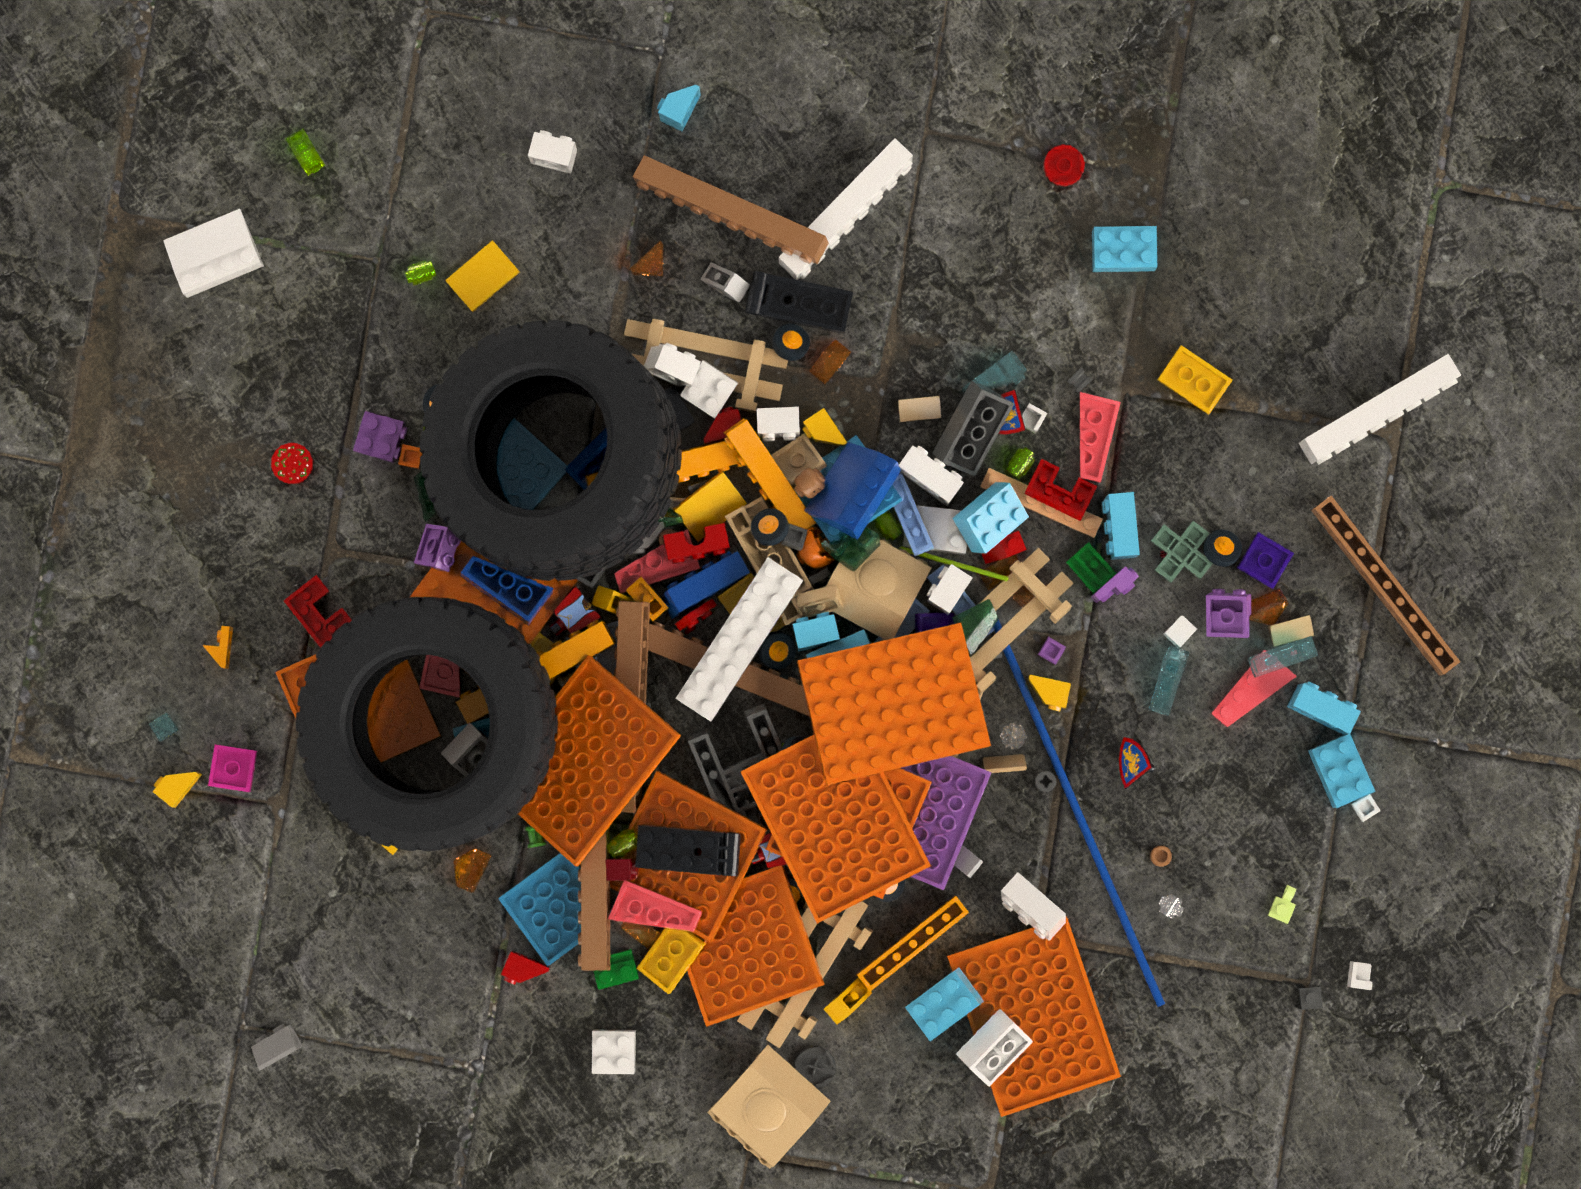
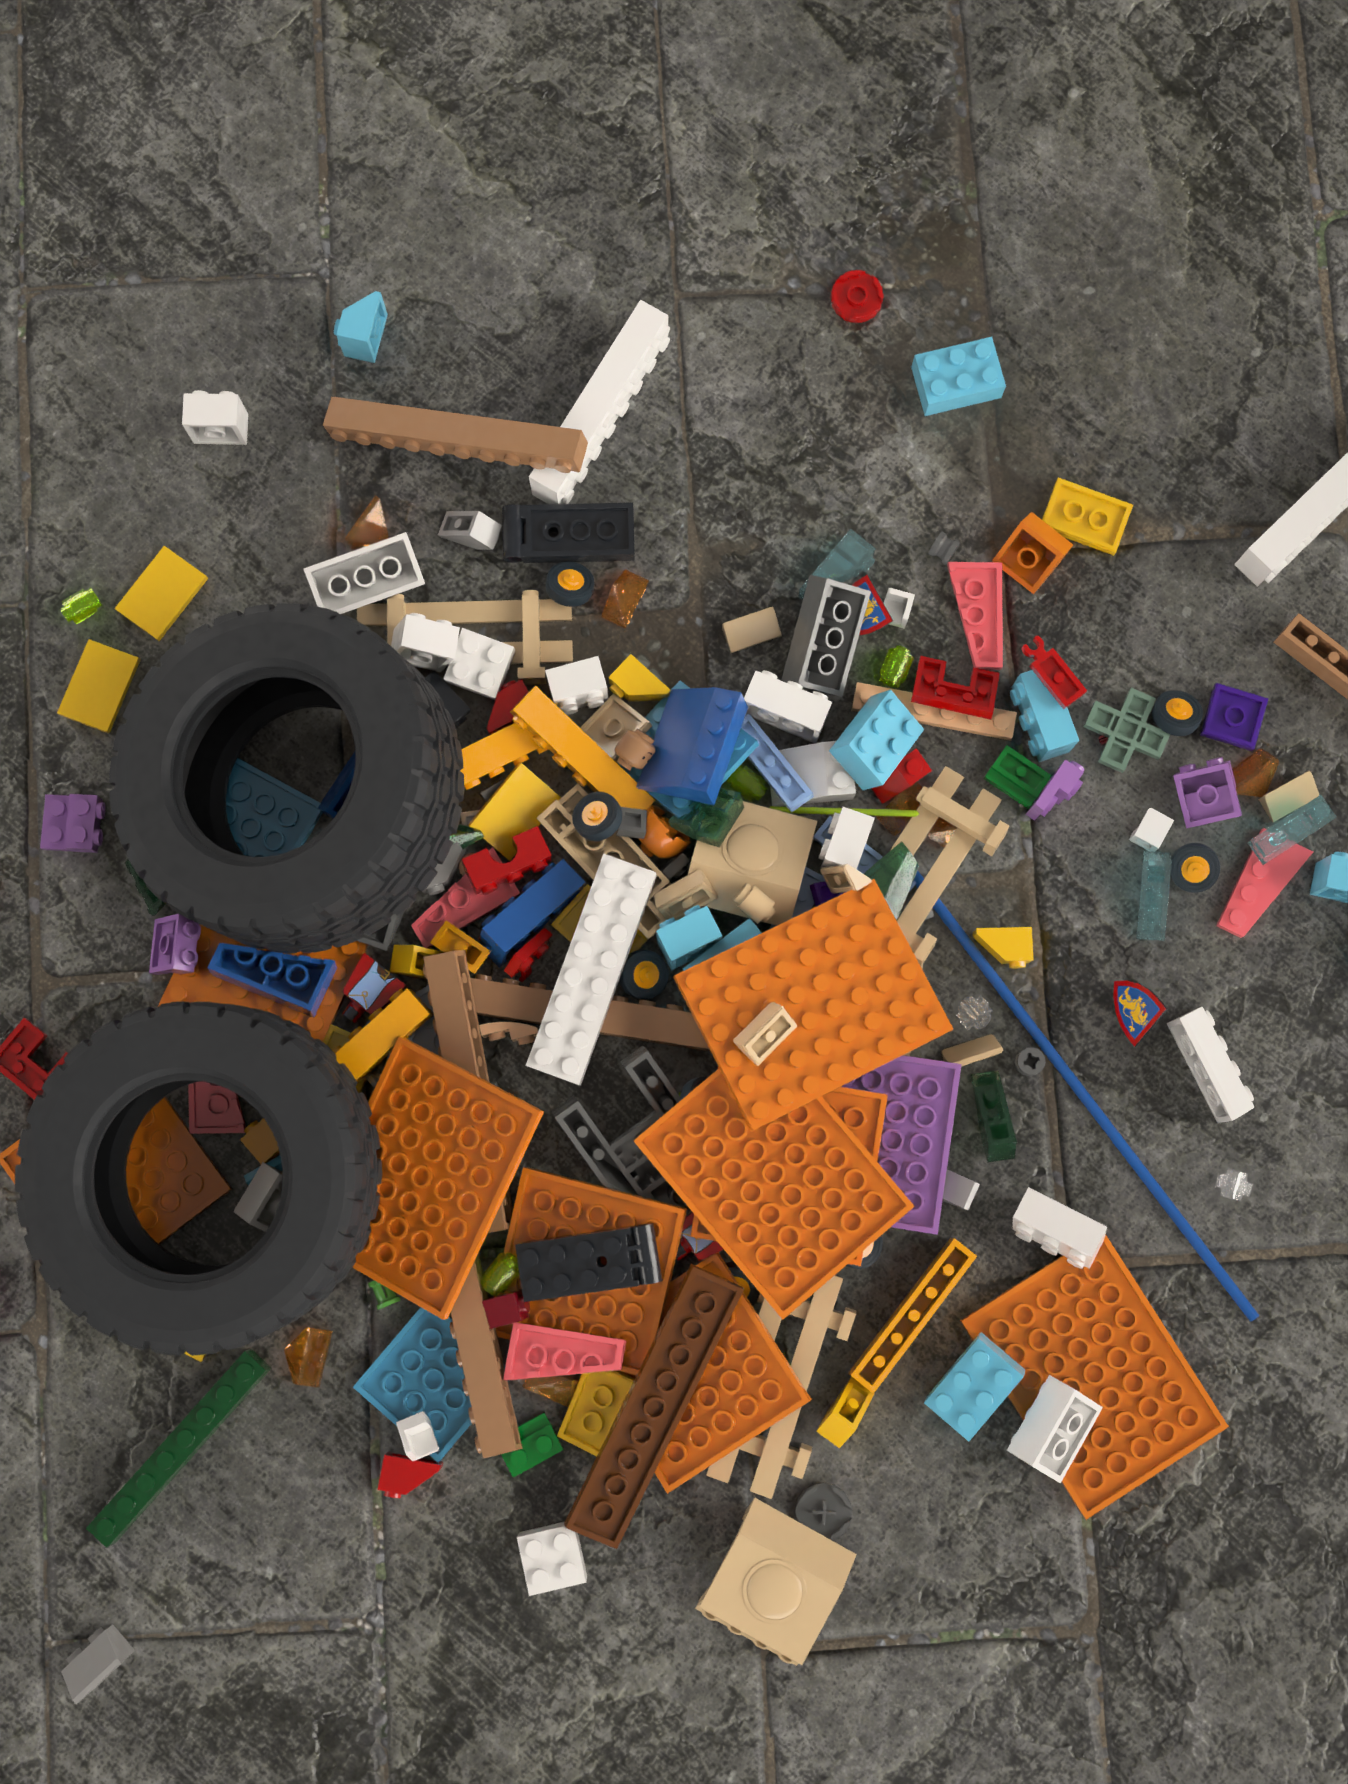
camera: 15 degrees left, 5 degrees down
(365, 911) = (178, 1448): none -> dark green brick
(410, 456) = (110, 840): orange plate -> none
(420, 337) = (98, 686): none -> yellow tile
(537, 943) = (417, 1436): none -> white panel
(638, 301) = (365, 575): none -> white slope
(676, 671) = (519, 1032): none -> light nougat slope
(711, 962) = (653, 1406): none -> reddish brown plate
(853, 717) = (765, 1033): none -> tan slope
(869, 619) = (754, 903): none -> tan brick
(939, 616) = (844, 878): none -> tan slope
(1008, 815) = (993, 1117): none -> clear green slope
(1051, 650) = (994, 893): medium lavender tile -> none
(1133, 501) = (1054, 673): none -> red plate
(1146, 399) = (1032, 552): none -> orange slope
(1160, 856) = (1202, 1123): medium nougat tile -> none
(1177, 815) = (1211, 1066): none -> white slope
(1204, 667) = (1195, 867): none -> black wheel

